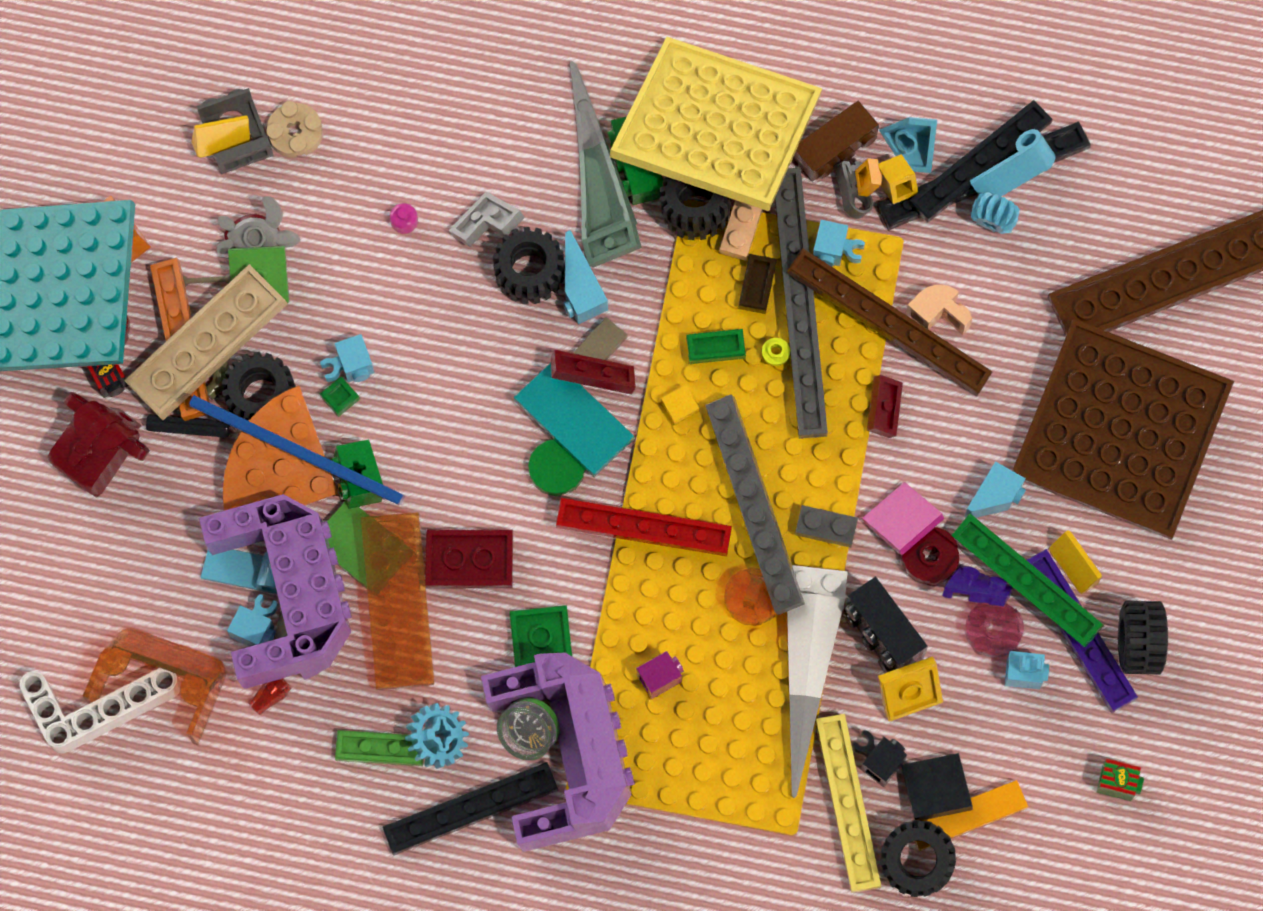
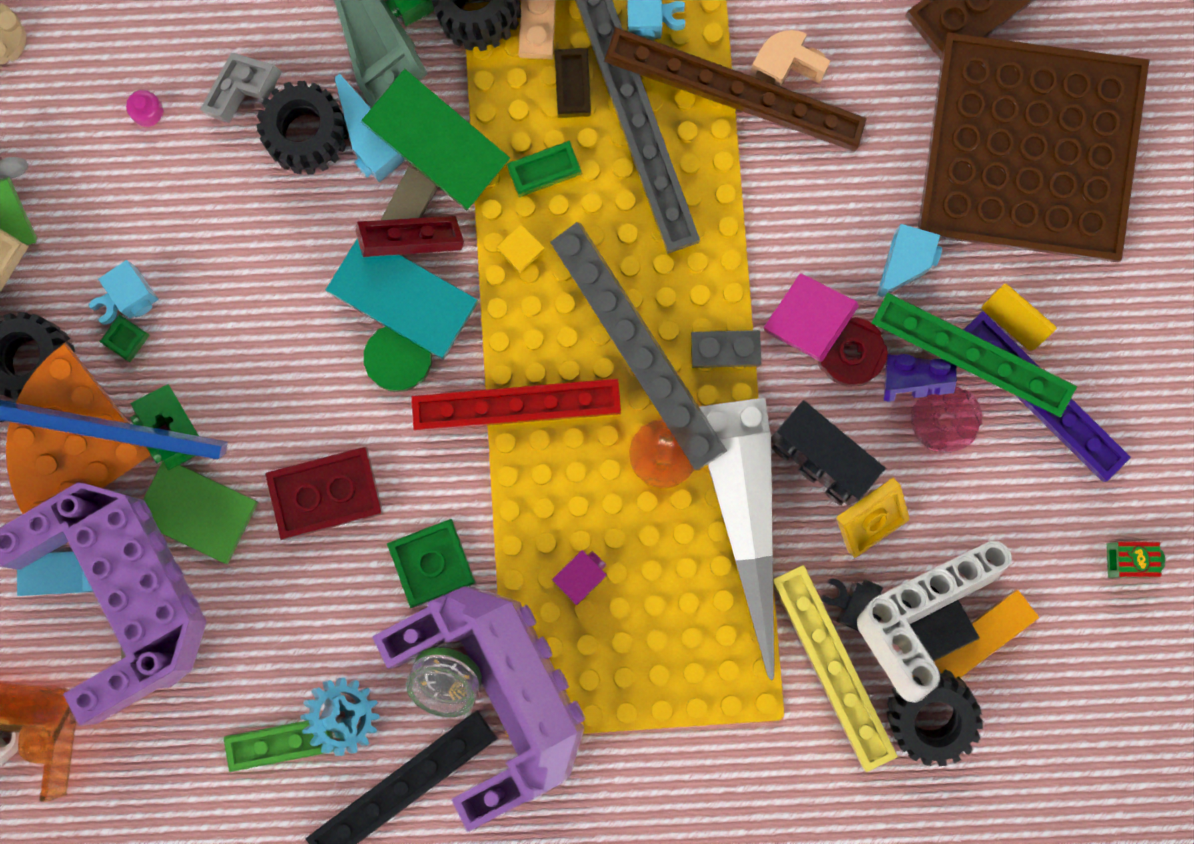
camera: 15 degrees left, 10 degrees up
(253, 626) = (90, 641): medium azure brick -> none
(269, 695) = (133, 718): clear red cone -> none
(397, 601) = (252, 567): clear orange plate -> none
(634, 301) = (435, 139): none -> green tile
(772, 359) = (611, 167): neon yellow plate -> none
(885, 406) = (755, 190): dark red plate -> none
(934, 758) = (924, 602): none -> white beam
(1026, 670) = (995, 458): medium azure brick -> none
(1142, 637) = (1124, 389): black tyre -> none

